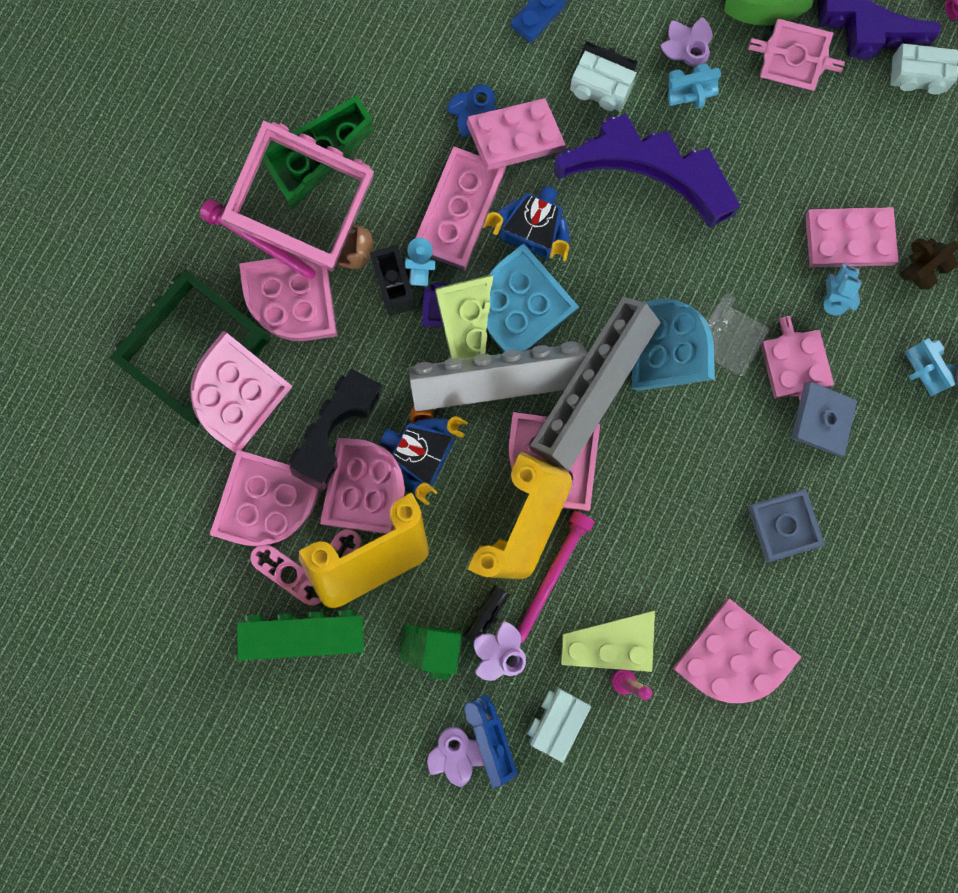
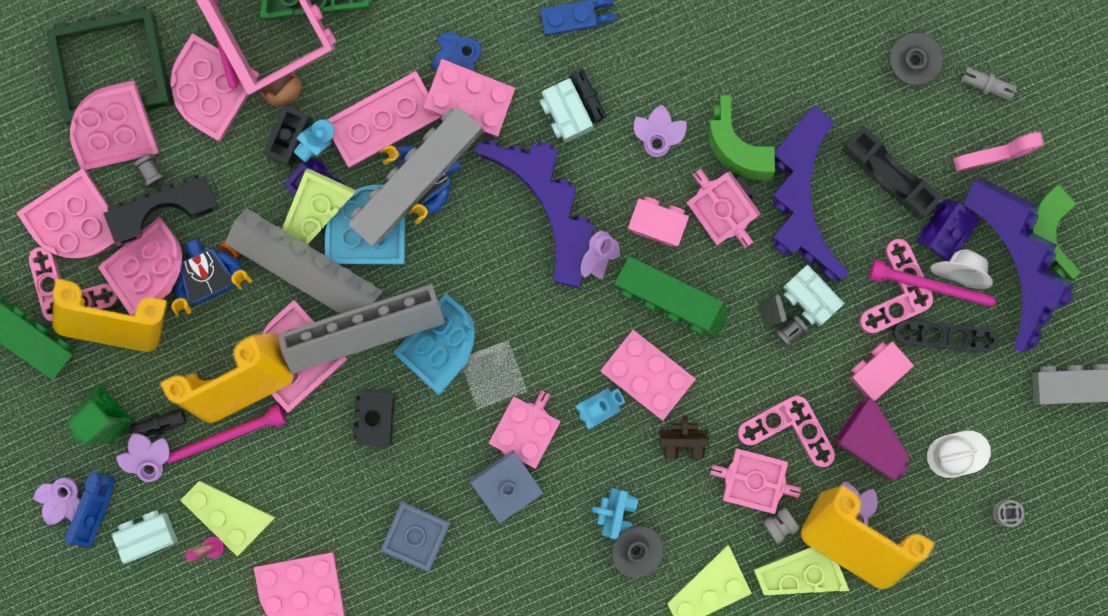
camera: 45 degrees right, 5 degrees up
(297, 406) = (149, 171): none -> flat silver bush
(533, 221) = (416, 176): none -> light grey brick
(666, 437) = (382, 433): none -> black brick
(693, 87) = (629, 171): medium azure hips -> none
(729, 159) = (601, 250): none -> lavender plate
(753, 109) = (658, 222): none -> bright pink brick
(822, 154) = (672, 297): none -> green wedge
(904, 105) = (772, 311): none -> flat silver slope
(933, 109) = (791, 331): none -> flat silver bush

